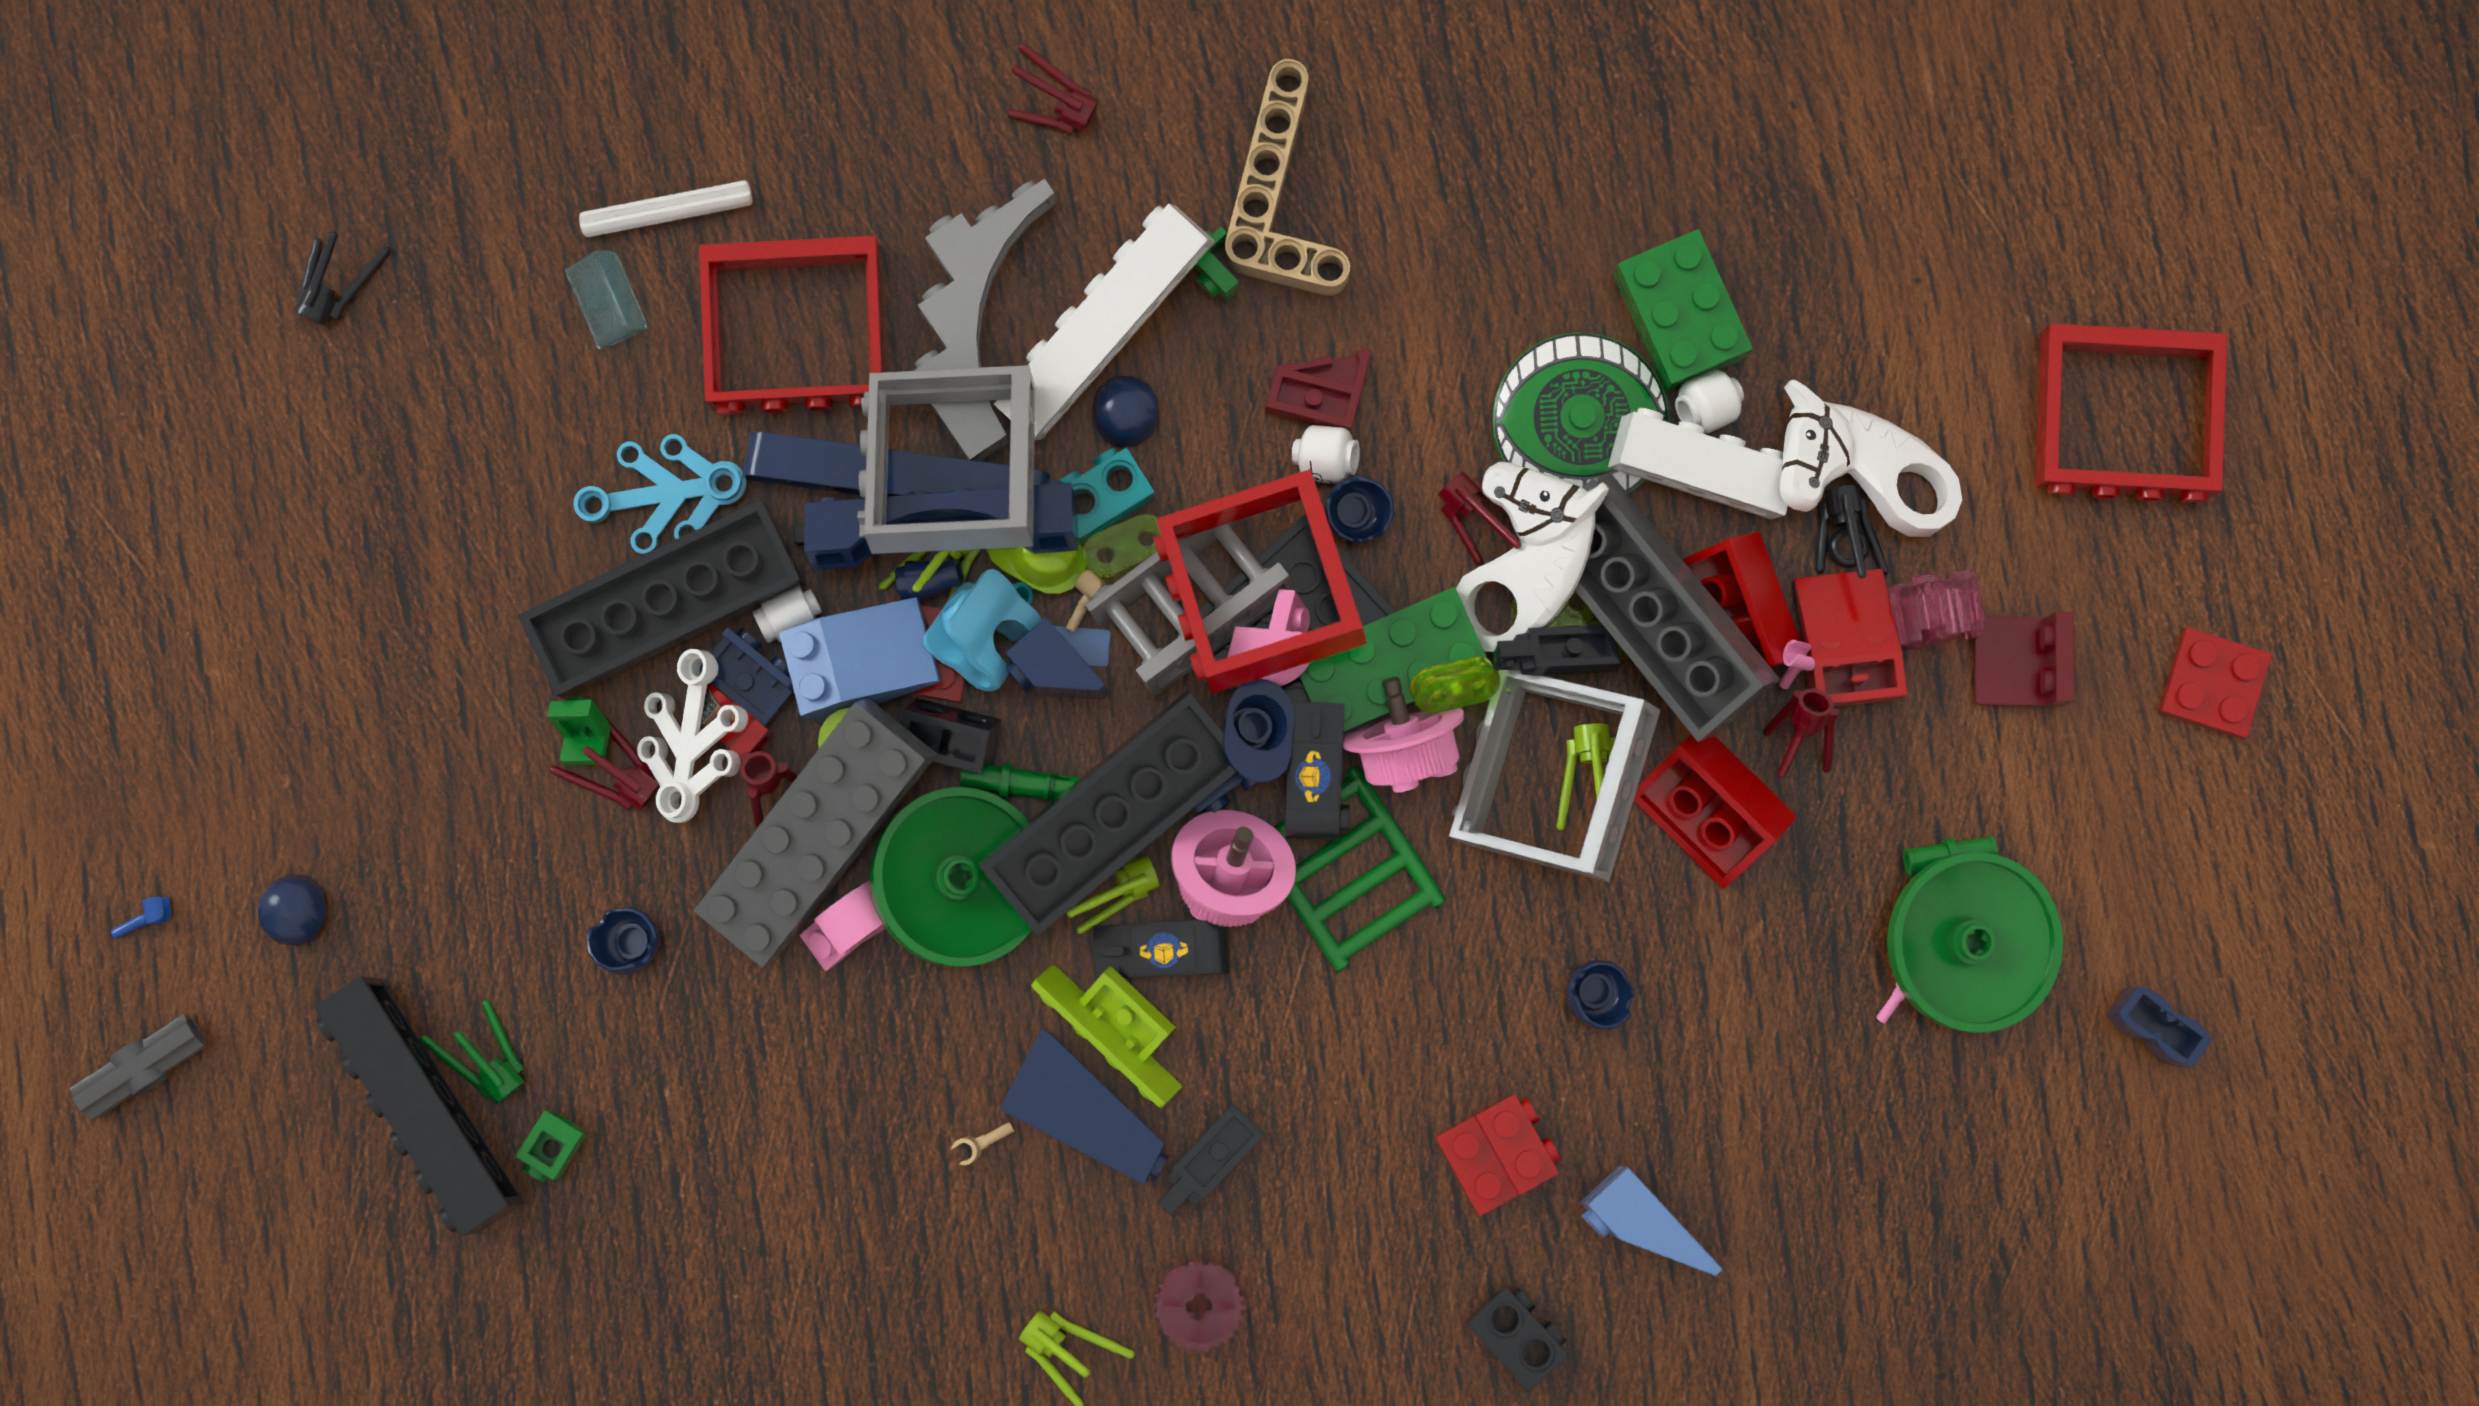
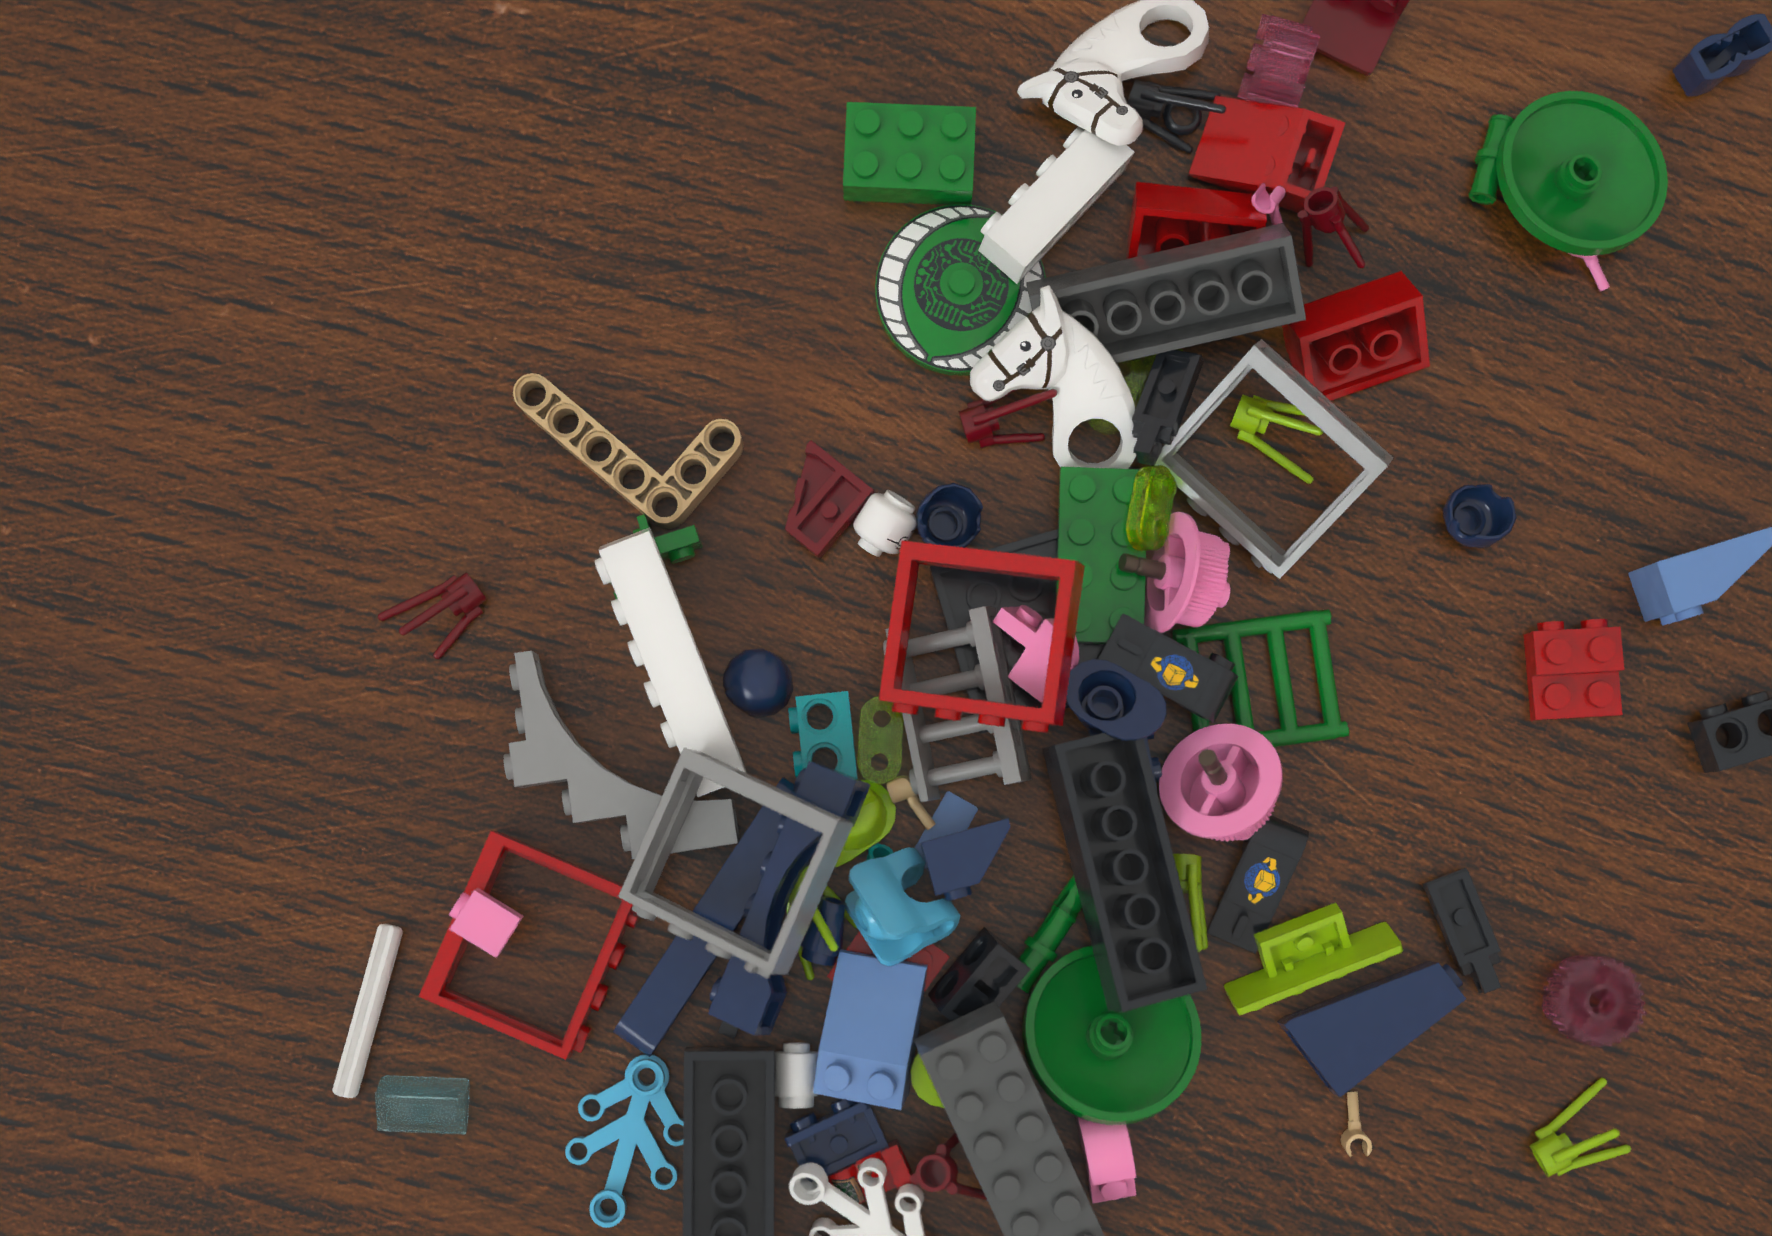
camera: 65 degrees left, 0 degrees up
(792, 268) = (484, 921): none -> bright pink brick
(1710, 400) = (999, 169): white head -> none

